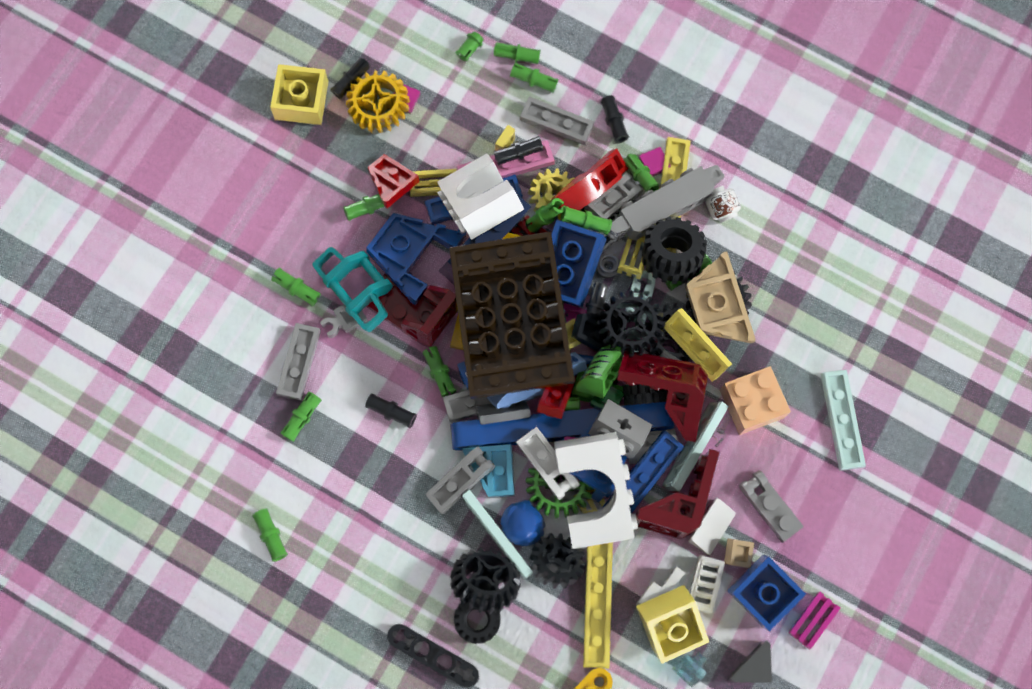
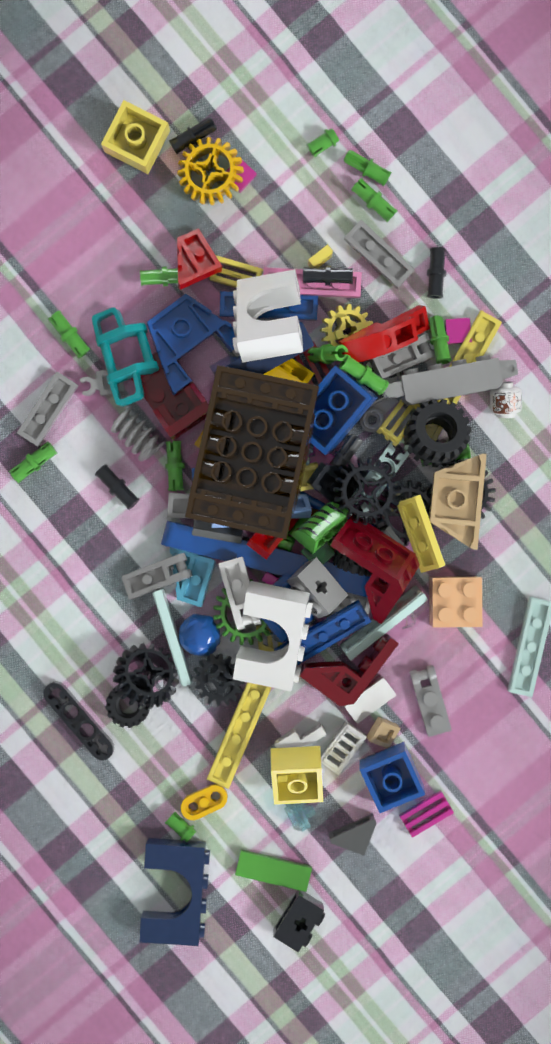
camera: 20 degrees right, 15 degrees up
(392, 355) = (136, 435): none -> light grey piece

